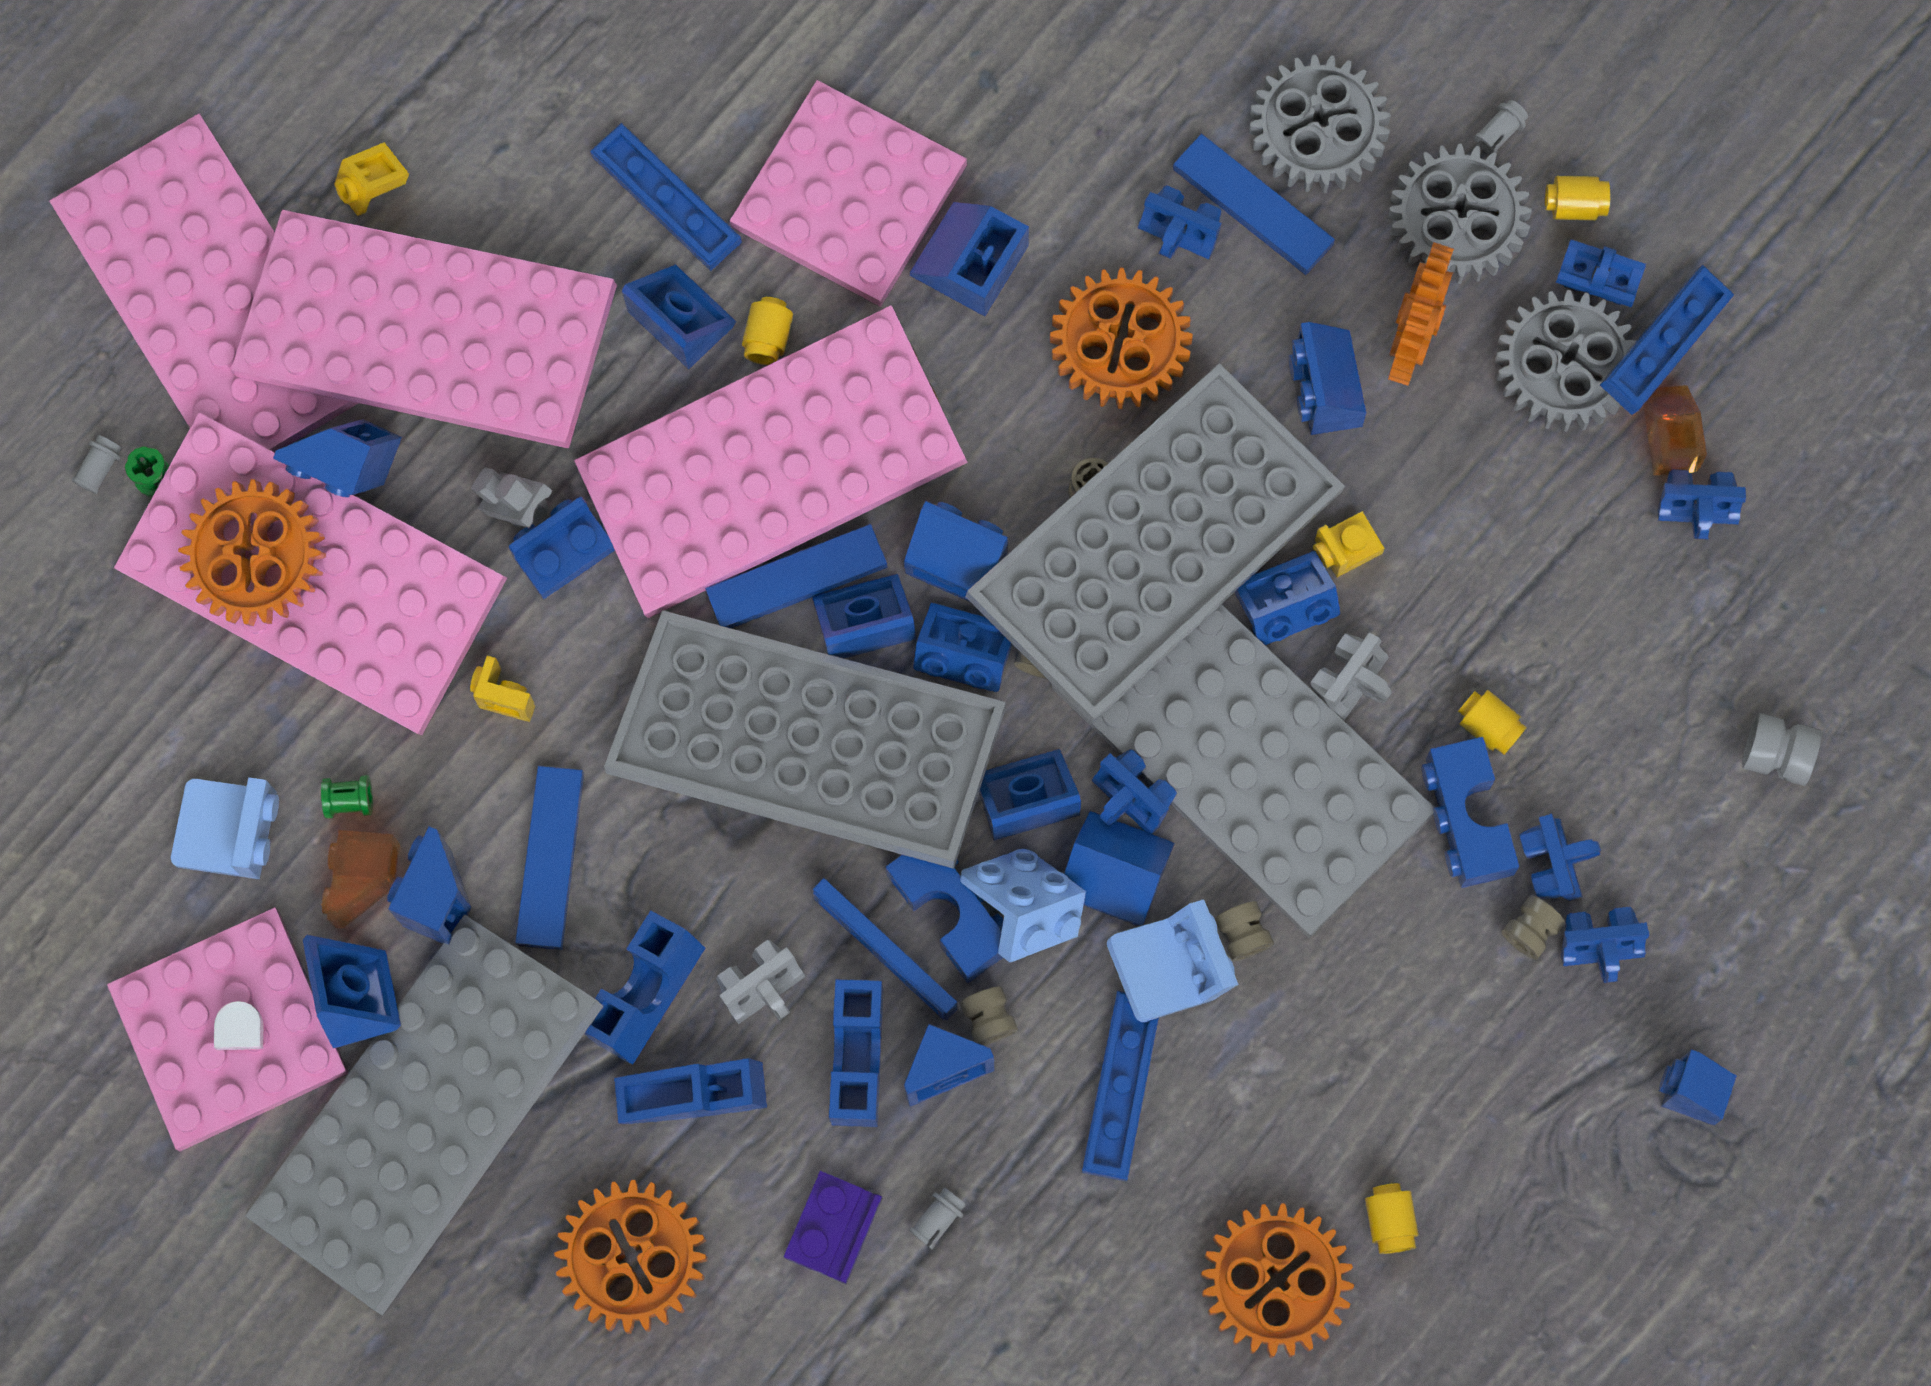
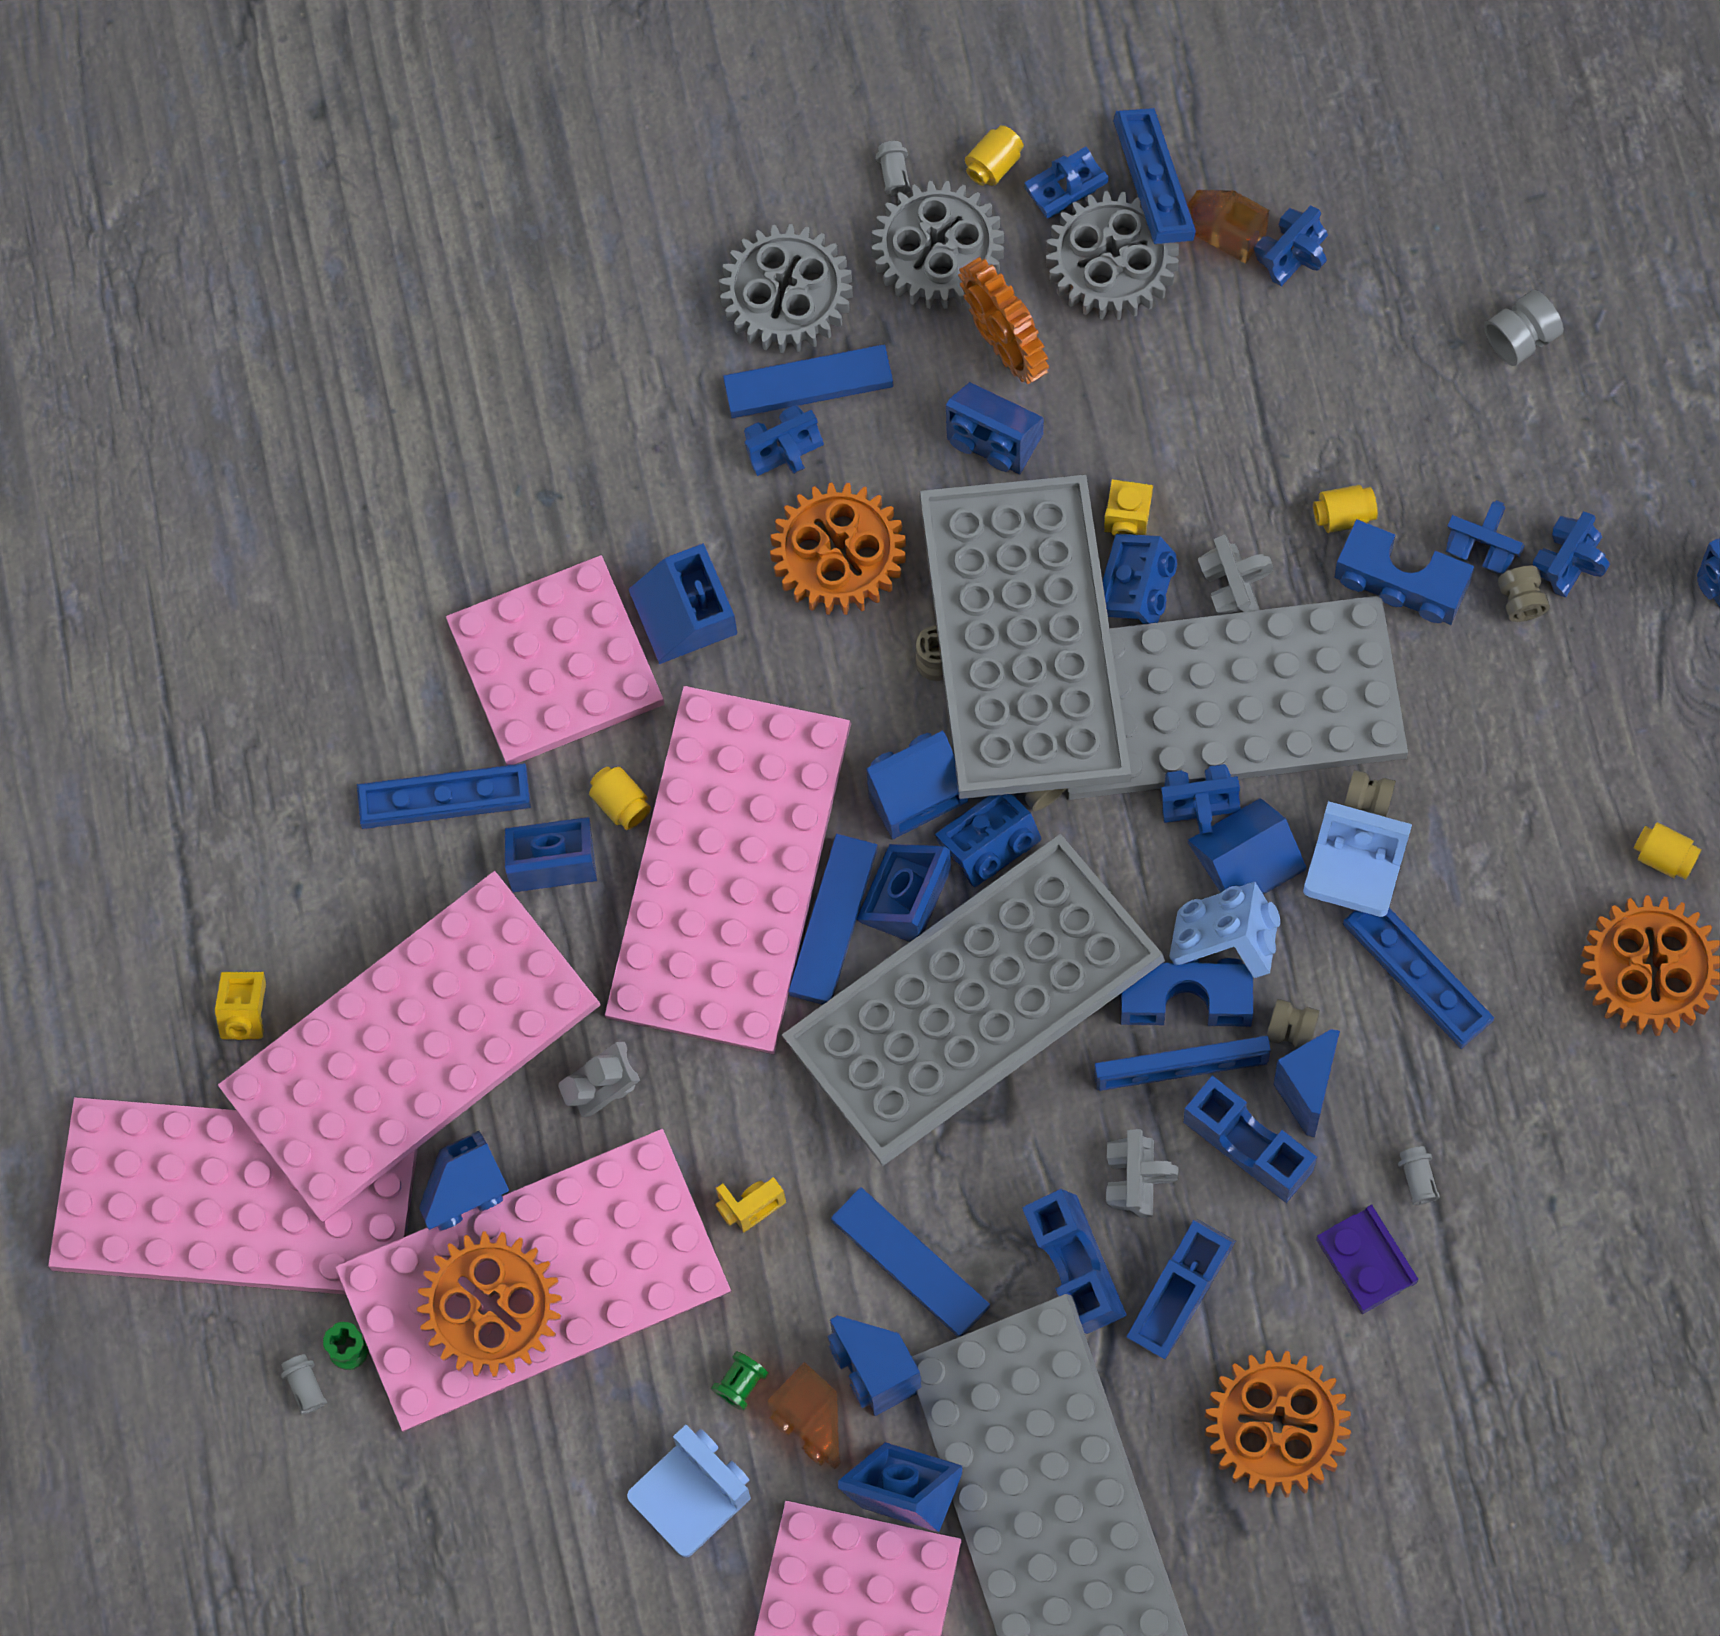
camera: 50 degrees left, 5 degrees down
(238, 1027) = (866, 1592): white tile -> none
(560, 546) = (667, 1076): blue bracket -> none
(1029, 794) = (1144, 869): blue slope -> none

